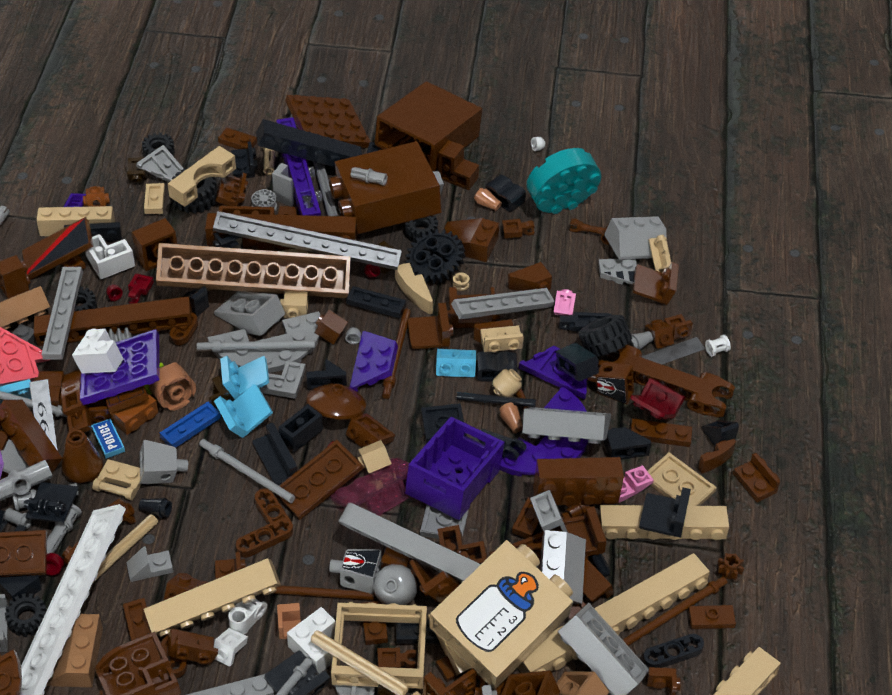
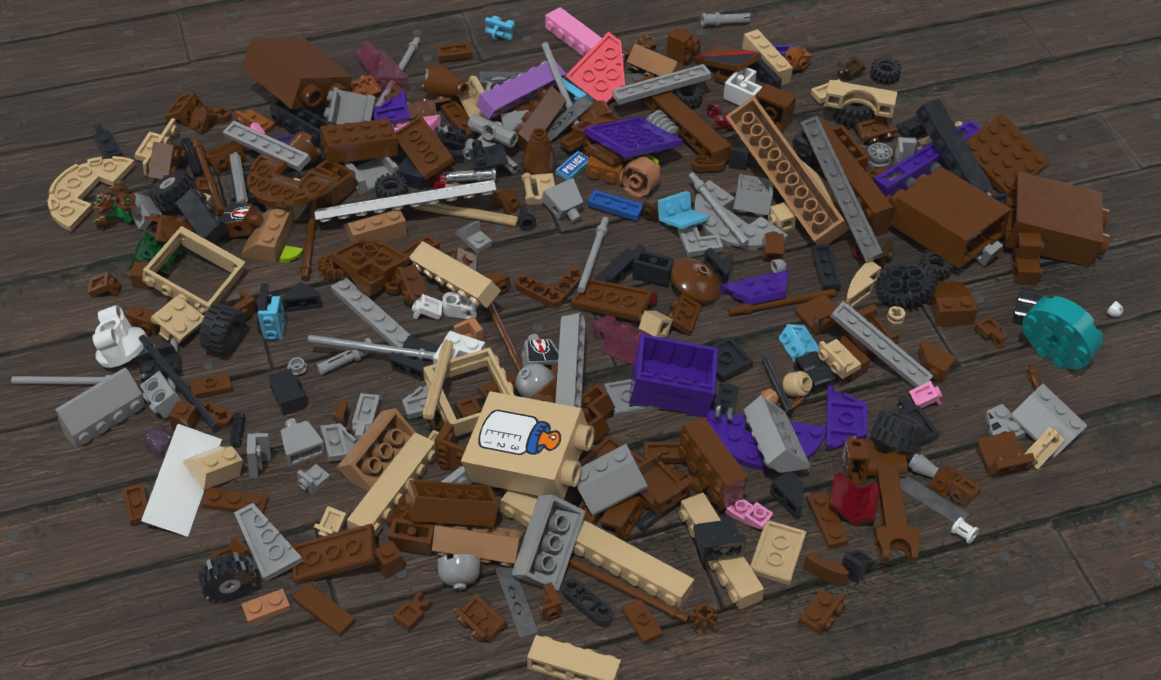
camera: 65 degrees right, 0 degrees up
(97, 353) = (634, 115): white brick -> none
(160, 164) = (865, 74): light grey wing -> none
(245, 411) = (642, 228): medium azure bracket -> none
(369, 175) = (937, 191): light grey axle -> none
(487, 199) = (1009, 296): nougat cone -> none
(547, 511) = (663, 454): light grey panel -> none
(577, 362) = (849, 419): black brick -> none

